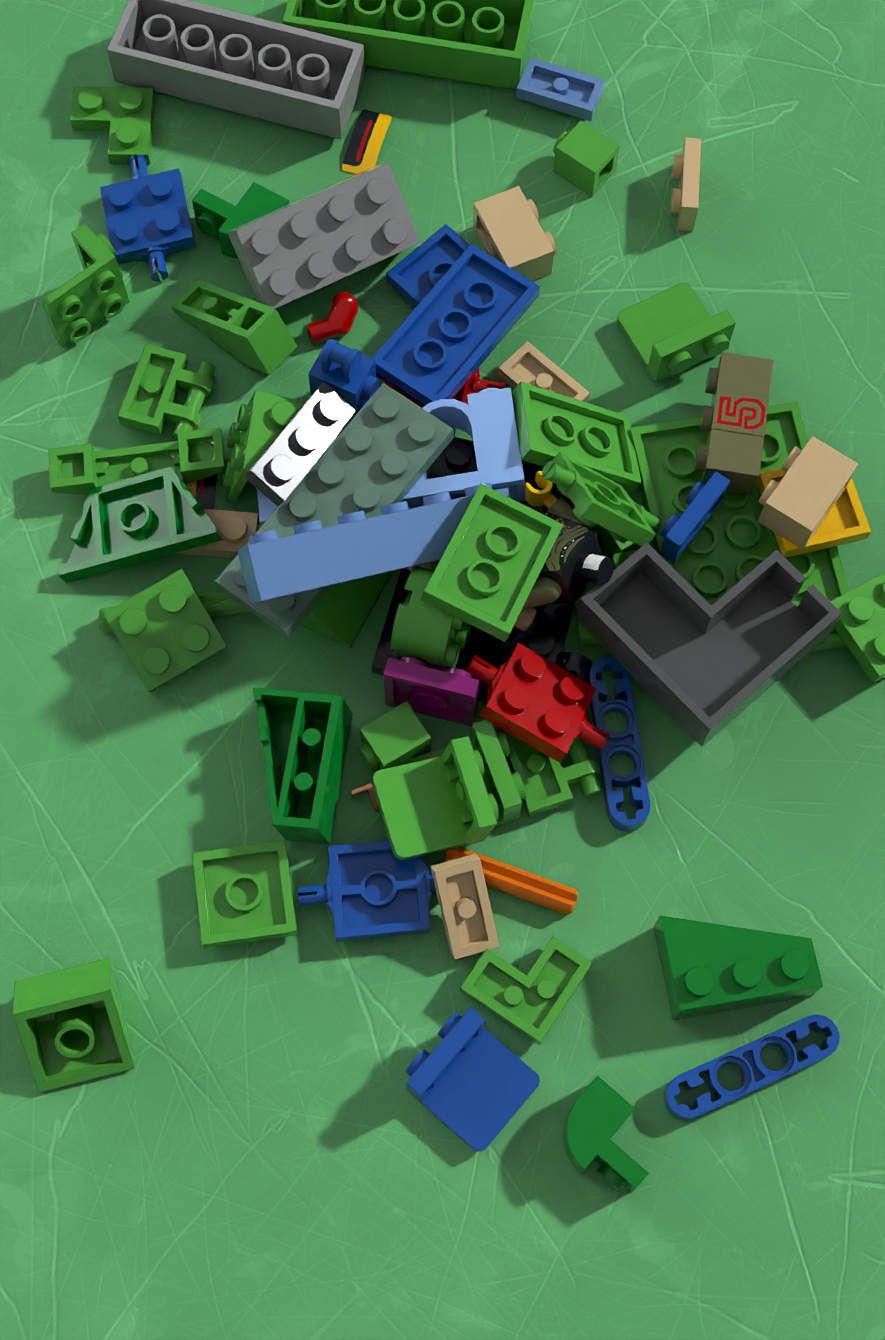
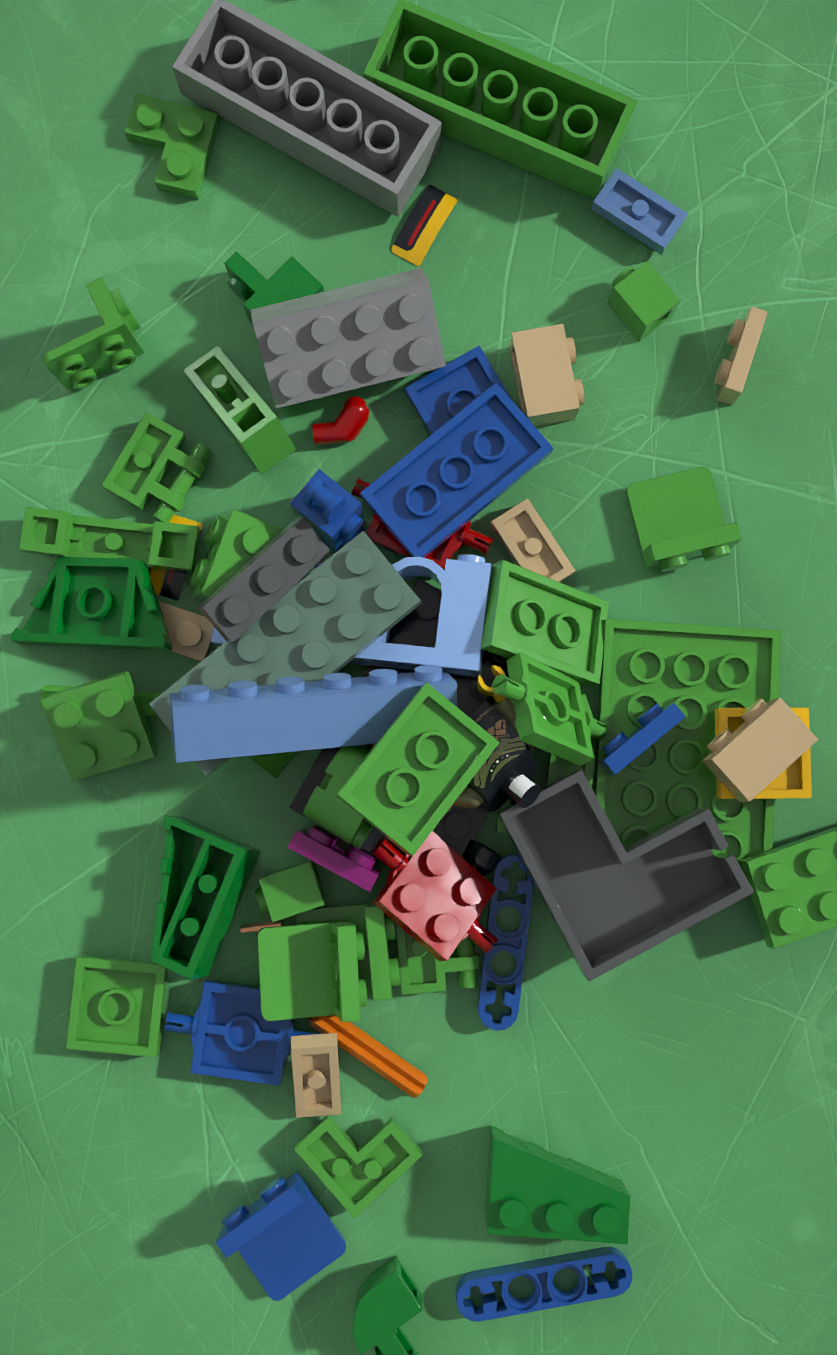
camera: 15 degrees right, 15 degrees up
(148, 217) = (180, 263): blue plate -> none
(735, 420) = (710, 645): olive brick -> none

